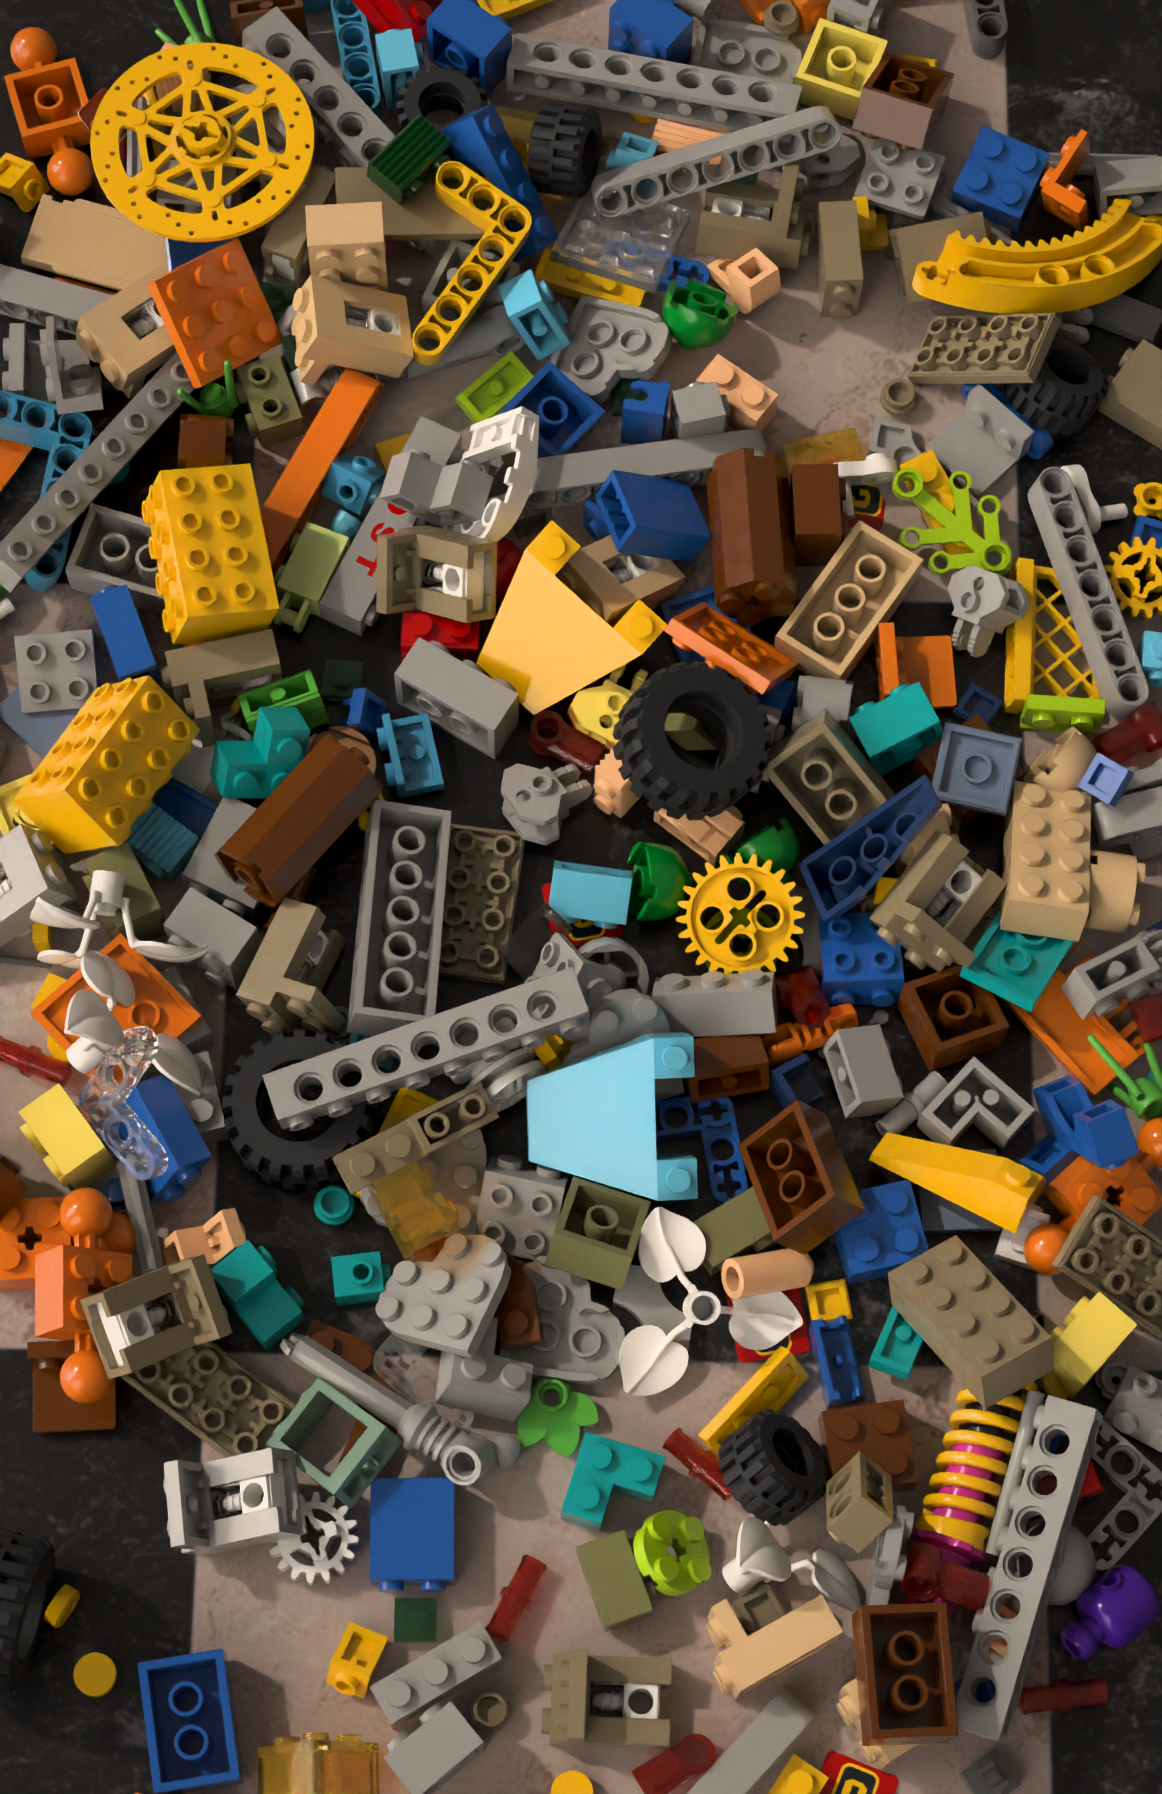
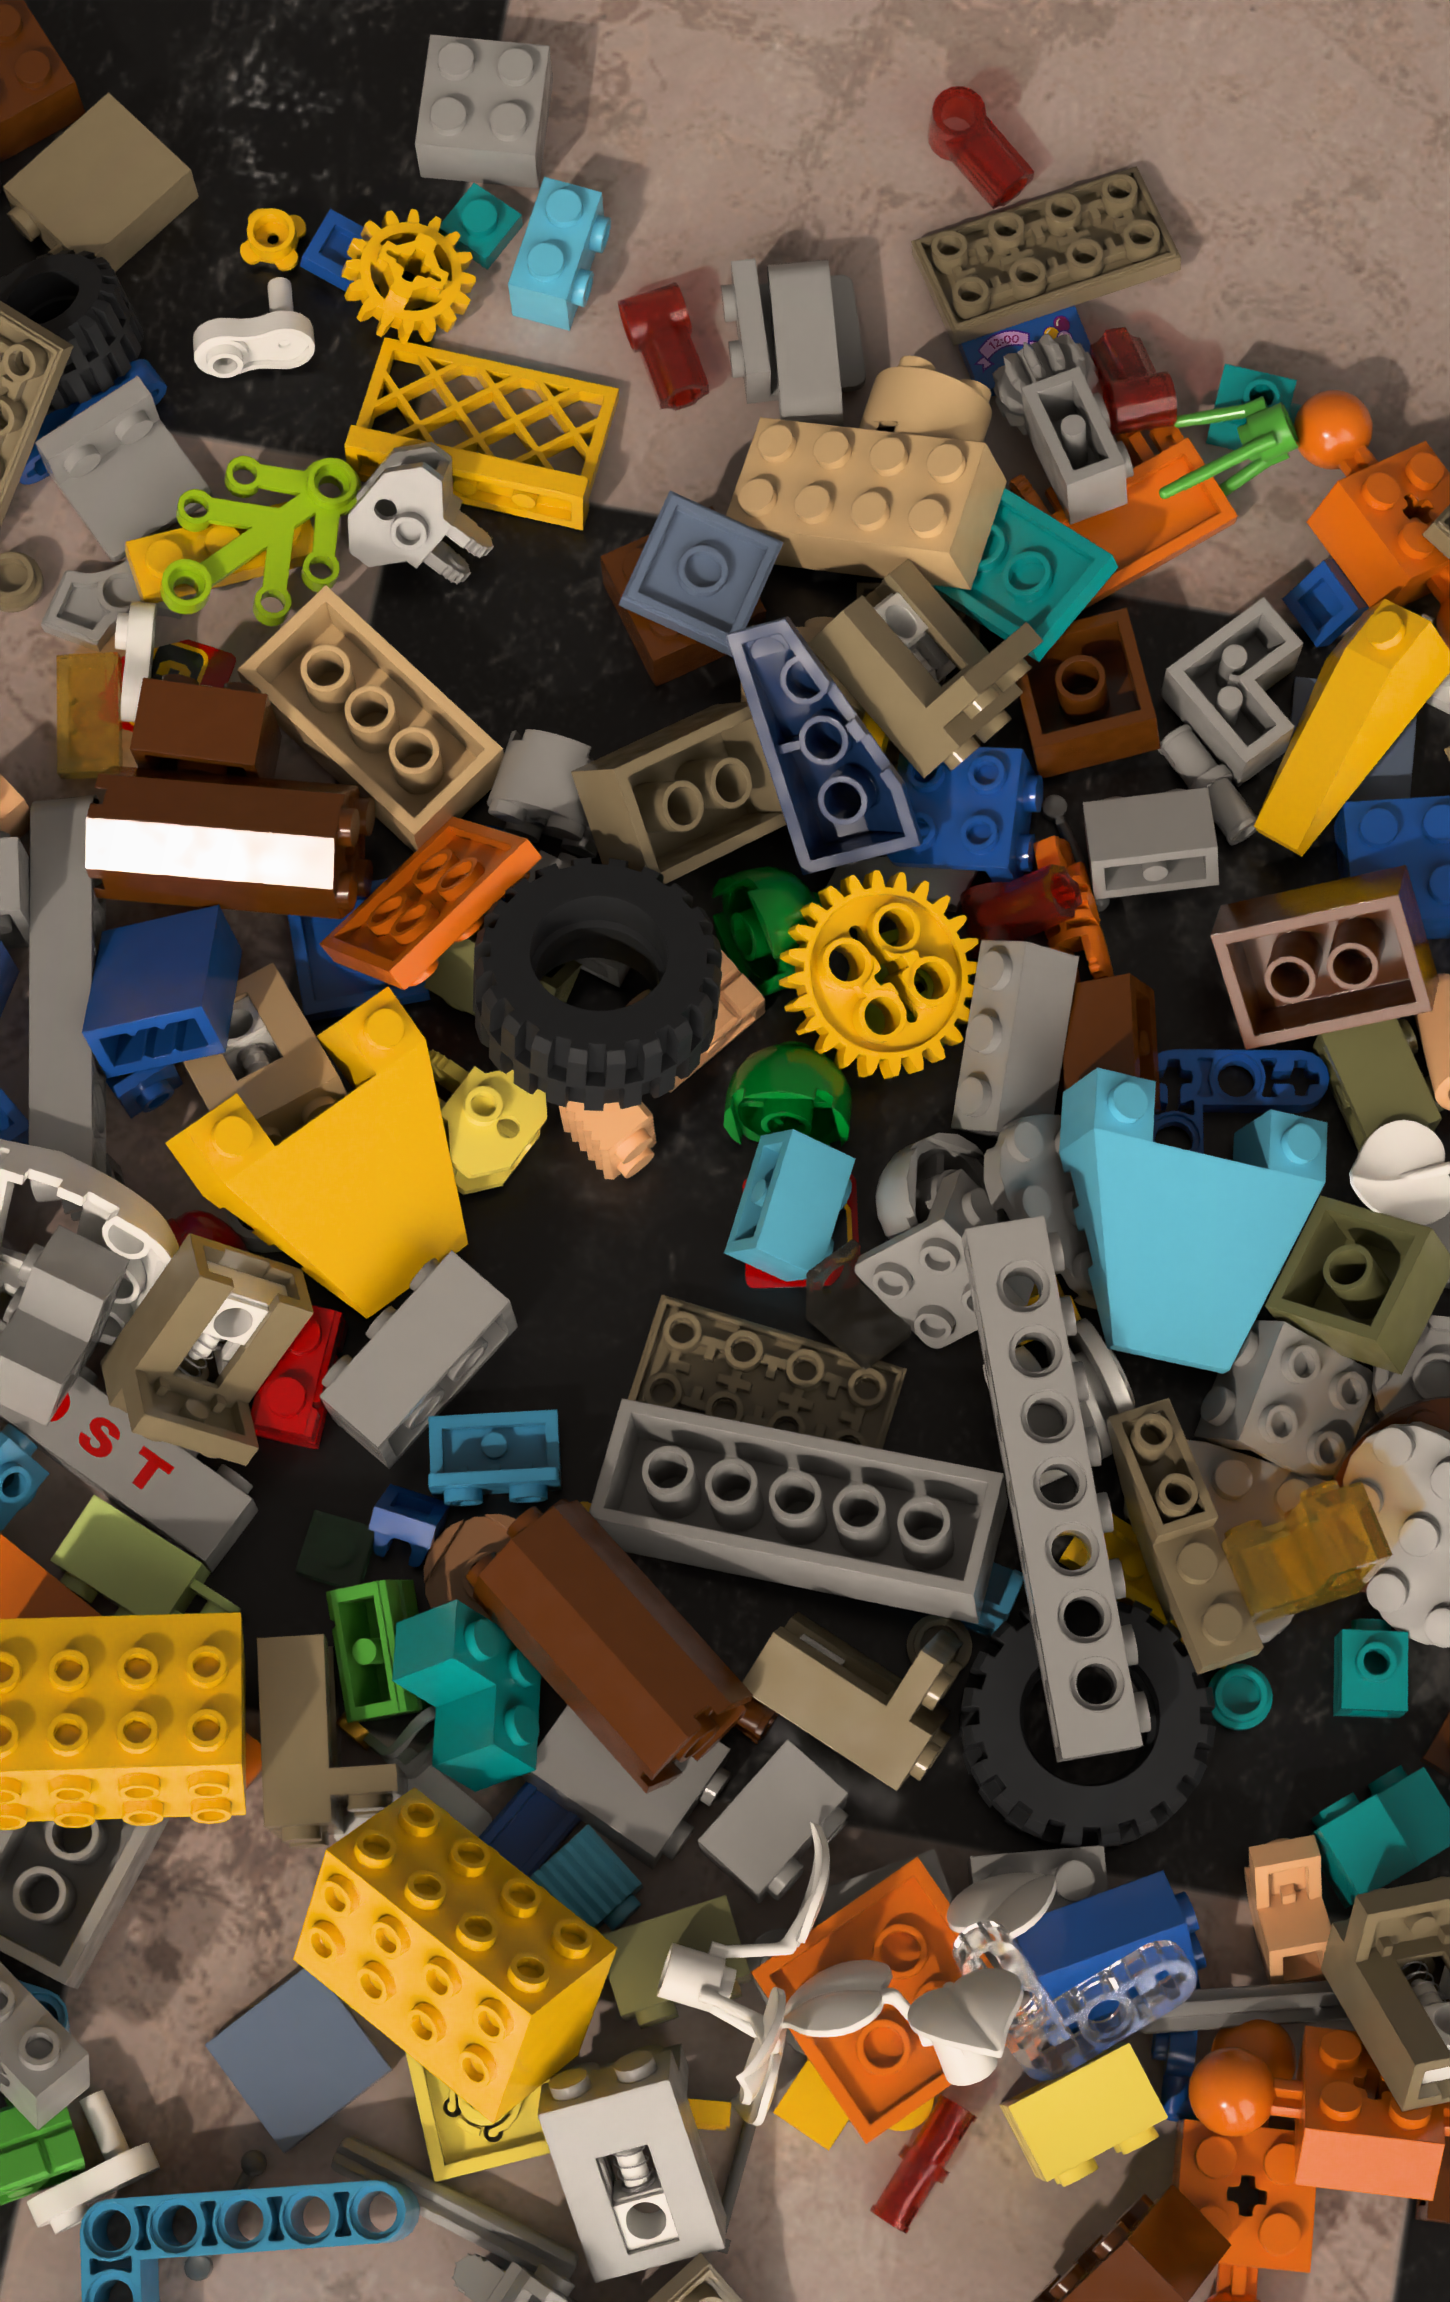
camera: 75 degrees left, 5 degrees up
(56, 670) = (233, 2027): light grey bracket -> none
(124, 634) = (215, 1898): blue brick -> none
(345, 524) = (59, 1505): medium azure hinge -> none
(541, 799) = (617, 1260): light grey hinge -> none
(568, 745) = (523, 1201): clear red piece -> none
(795, 1082) = (1153, 950): dark blue panel -> none
(896, 727) = (604, 678): teal brick -> none
(914, 660) = (497, 646): orange bracket -> none
(978, 701) = (569, 566): dark blue tile -> none
(1061, 713) = (613, 449): lime plate -> none
(1064, 764) = (701, 449): tan cylinder -> none
(1085, 609) = (396, 376): light grey beam -> none
(1095, 1132) = (1353, 491): blue arch -> none
(1106, 779) = (755, 384): plate -> none

